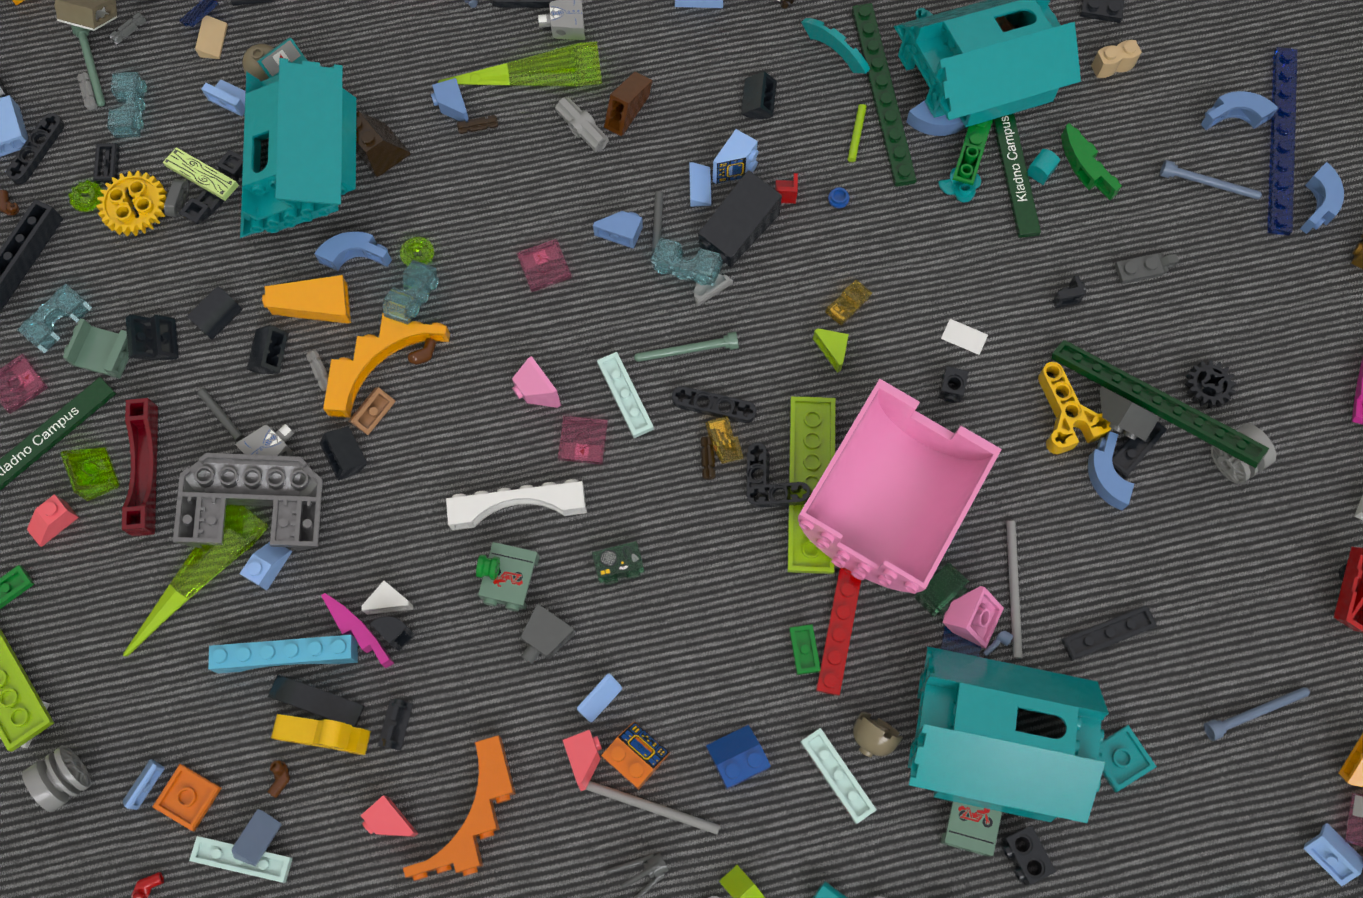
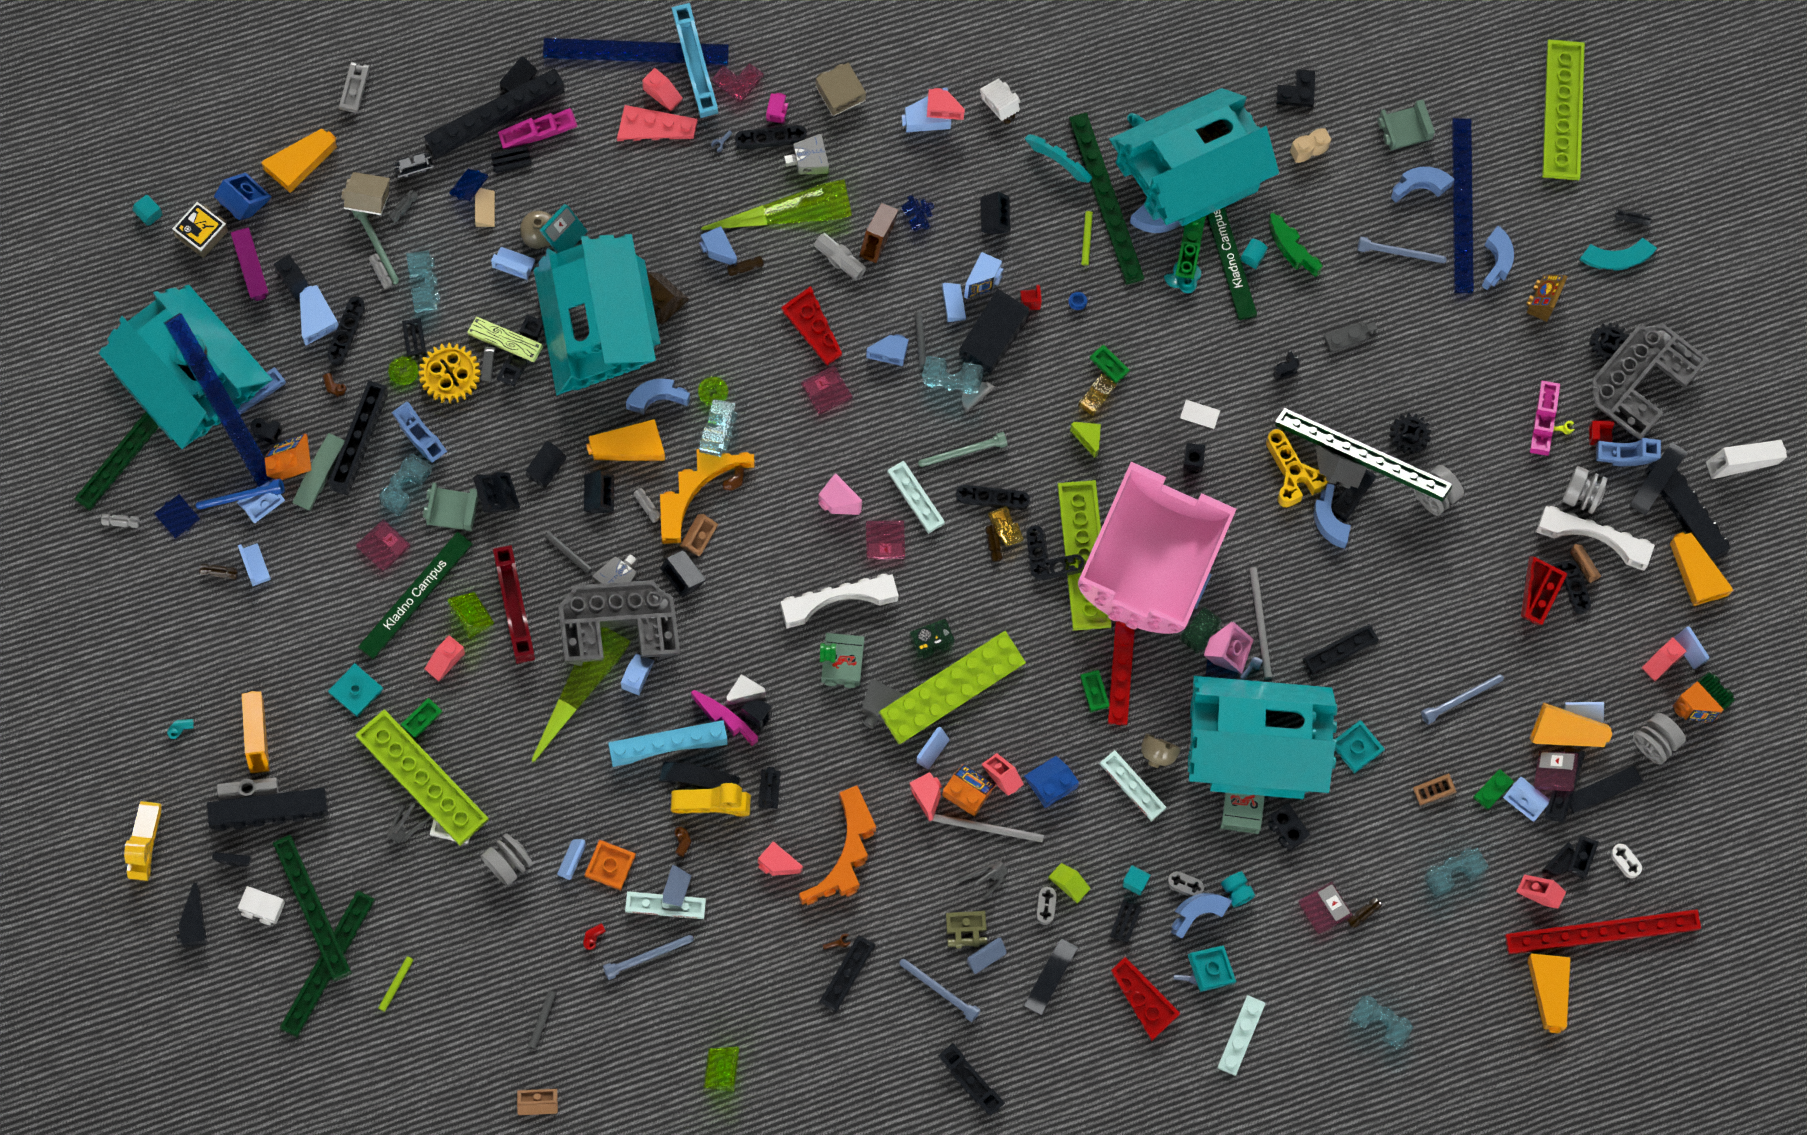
camera: 15 degrees left, 0 degrees up
(80, 260) = (418, 433): none -> medium blue arch
(538, 190) = (809, 320): none -> red wing
(631, 626) = (952, 687): none -> lime plate
(669, 80) = (913, 206): none -> clear blue hips
(679, 741) = (1003, 774): none -> coral slope
(866, 269) = (1109, 364): none -> green plate
(1225, 51) = (1406, 126): none -> sand green panel
(1236, 820) = (1439, 780): none -> medium nougat slope
(1291, 835) = (1493, 789): none -> green plate

